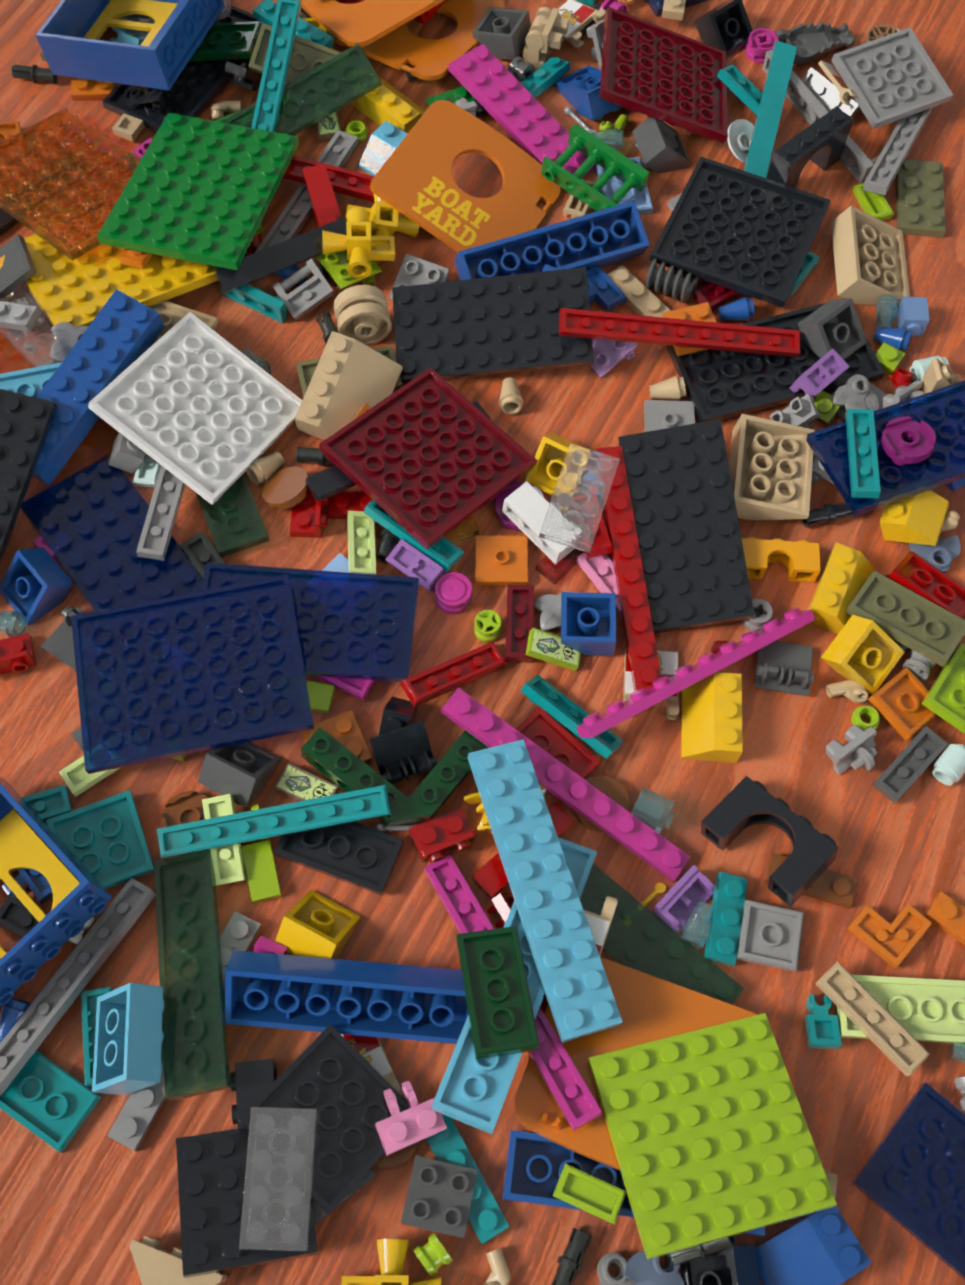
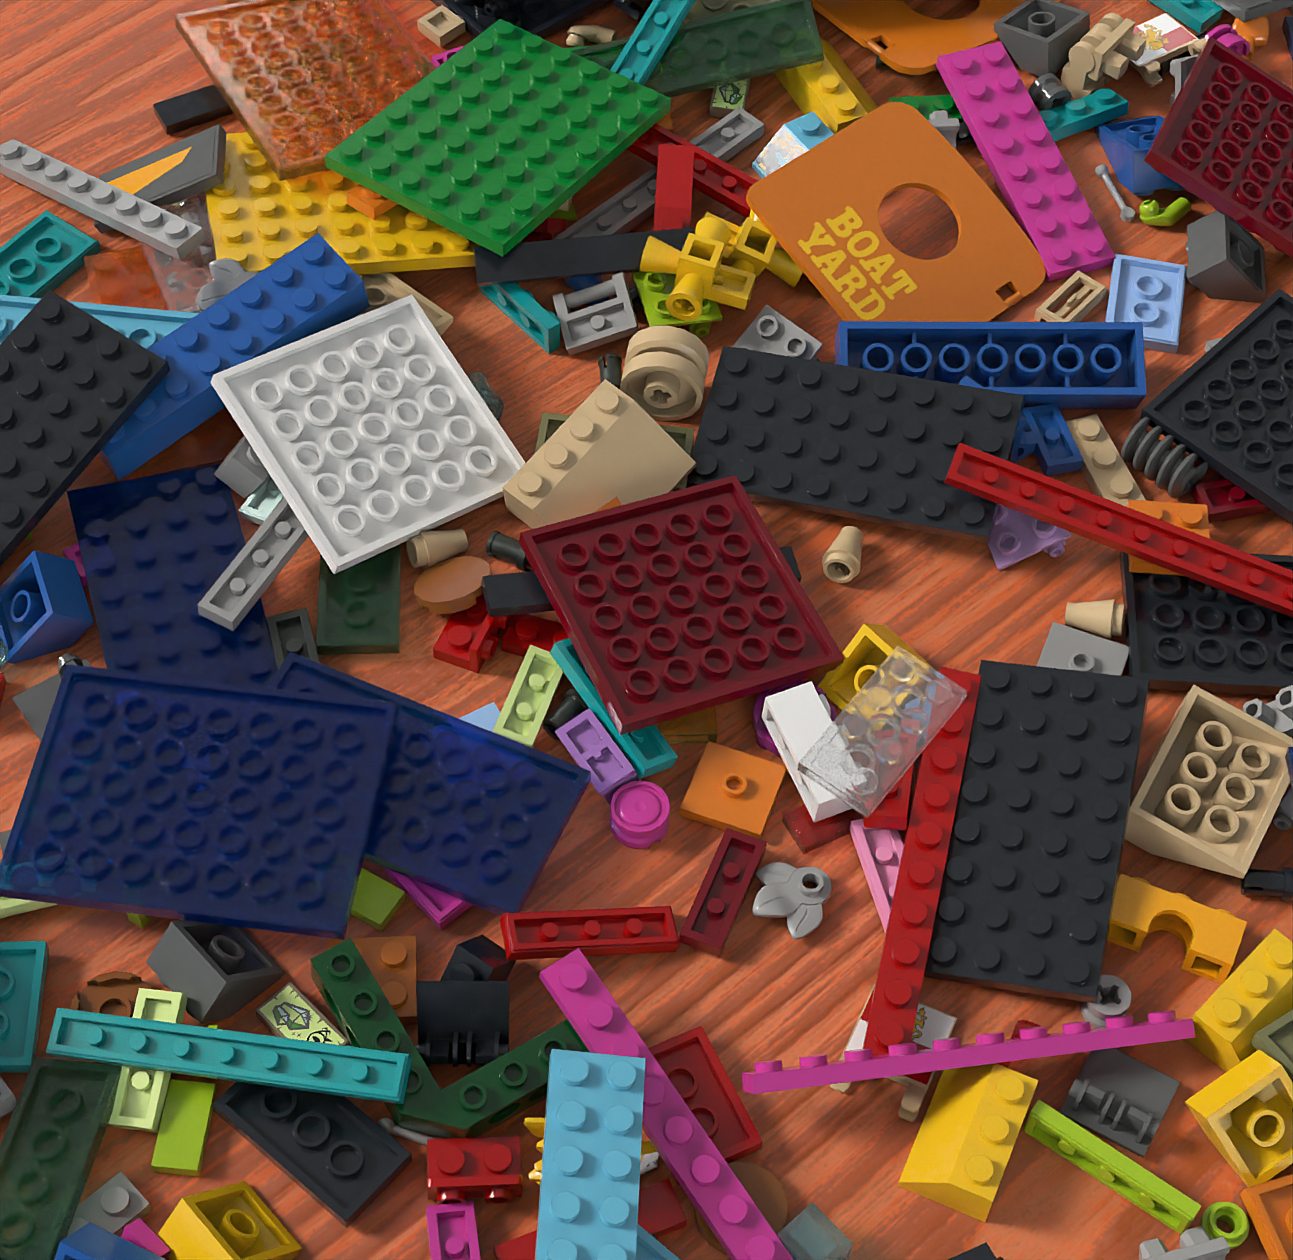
camera: 20 degrees right, 10 degrees down
(357, 129) = (770, 114): lime plate -> none
(484, 620) = (671, 868): lime wheel -> none
(549, 649) = (759, 947): tile -> none
(568, 714) = (741, 1048): teal plate -> none
(589, 622) = (827, 924): blue slope -> none
(601, 154) = (1116, 240): green fence -> none
(612, 137) = (1148, 228): clear light blue cone -> none
(737, 311) = (1257, 532): blue cone -> none
(796, 708) = (1111, 1167): none -> lime tile
(849, 689) = (1214, 1168): tan arm -> none

